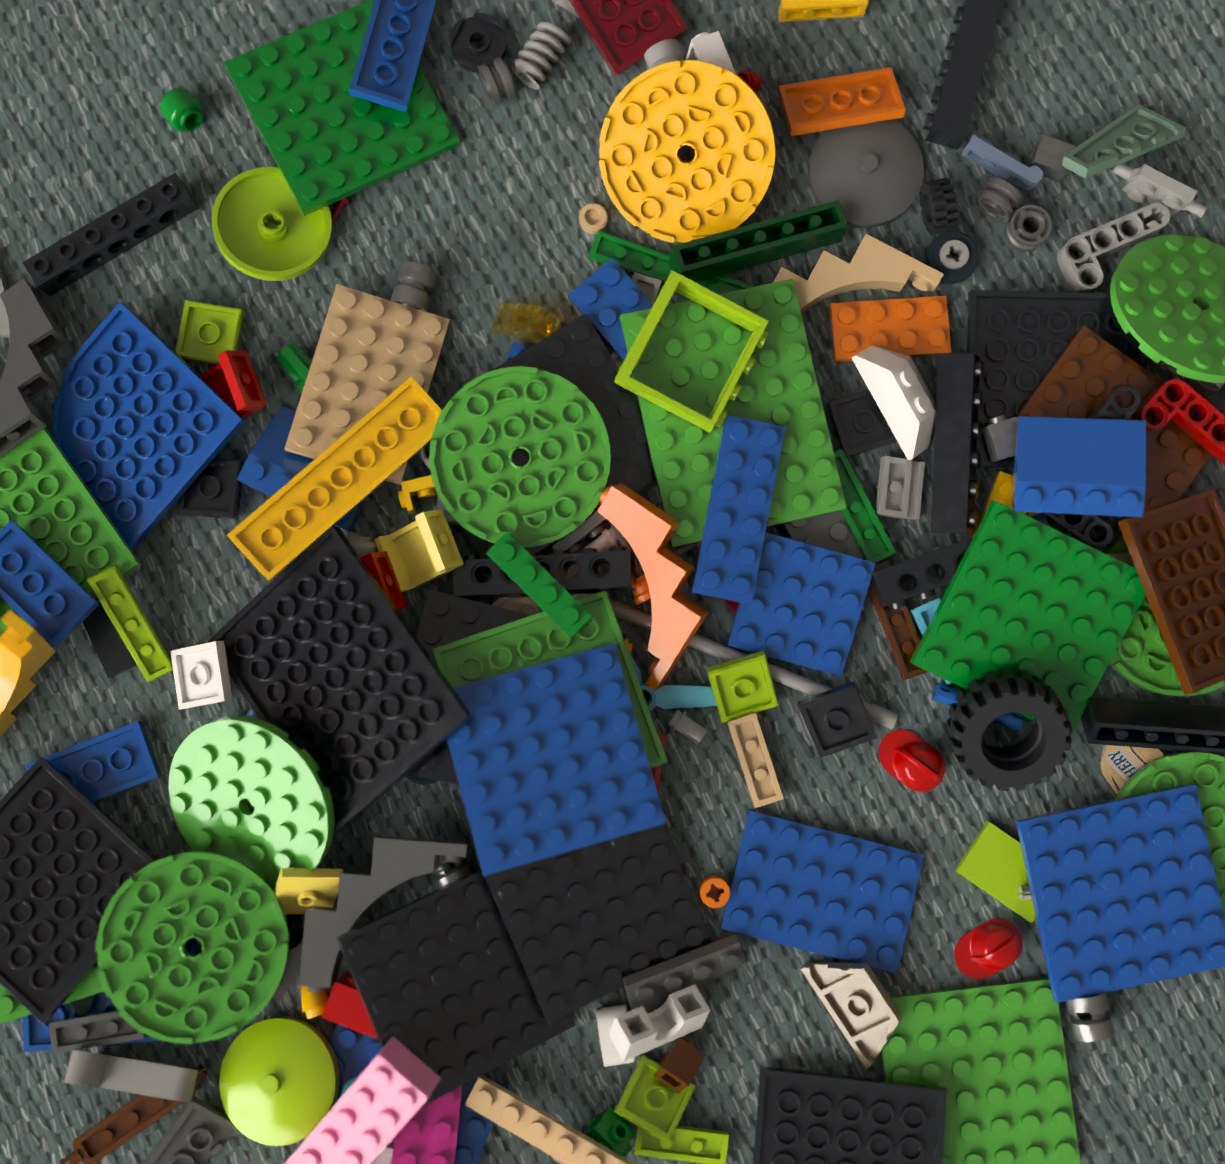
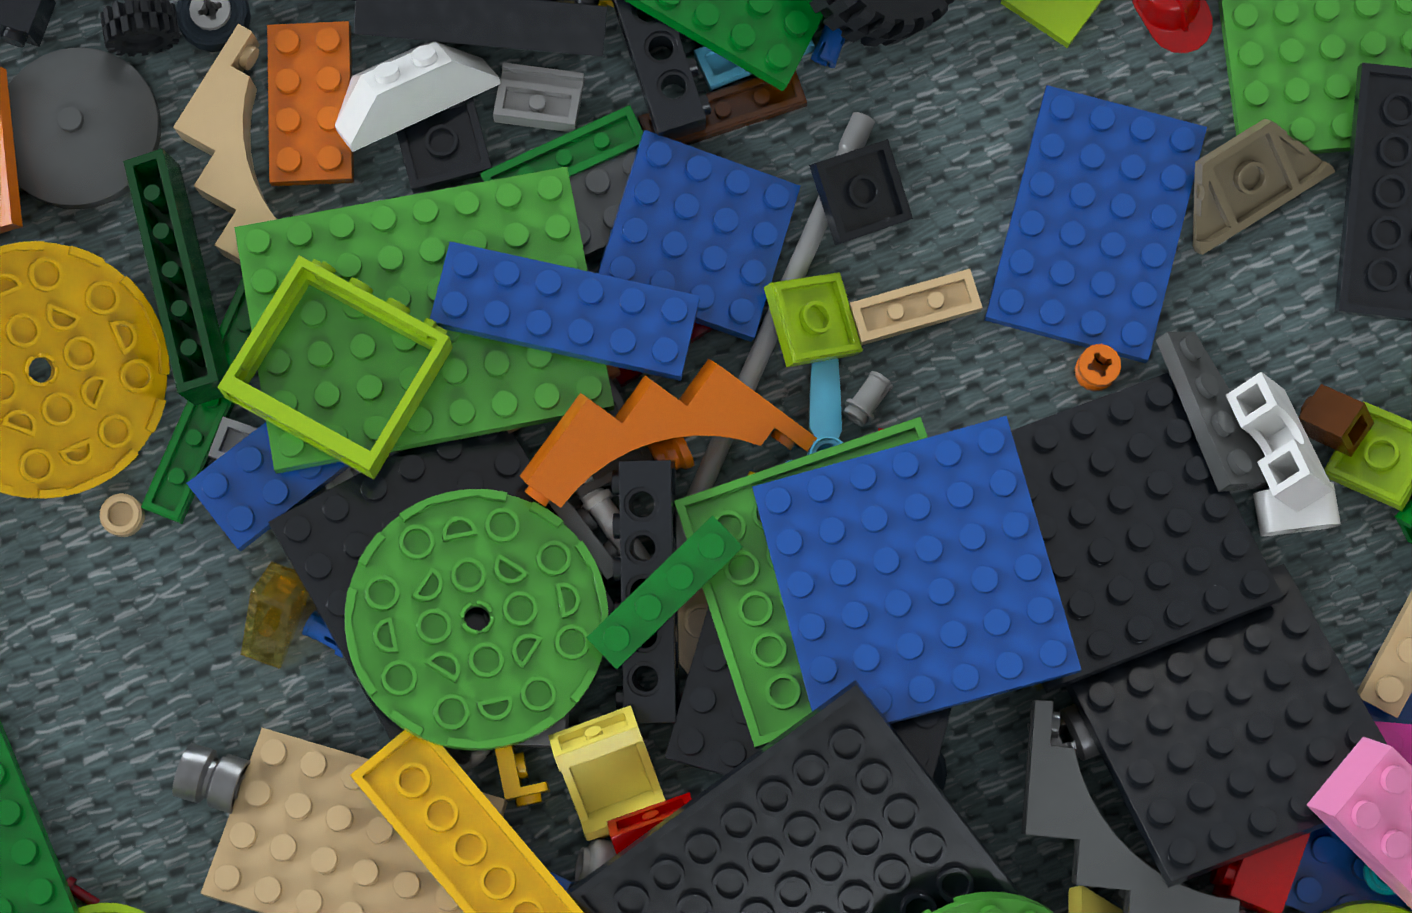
camera: 85 degrees left, 5 degrees down
(911, 760) = (917, 98): red piece -> none

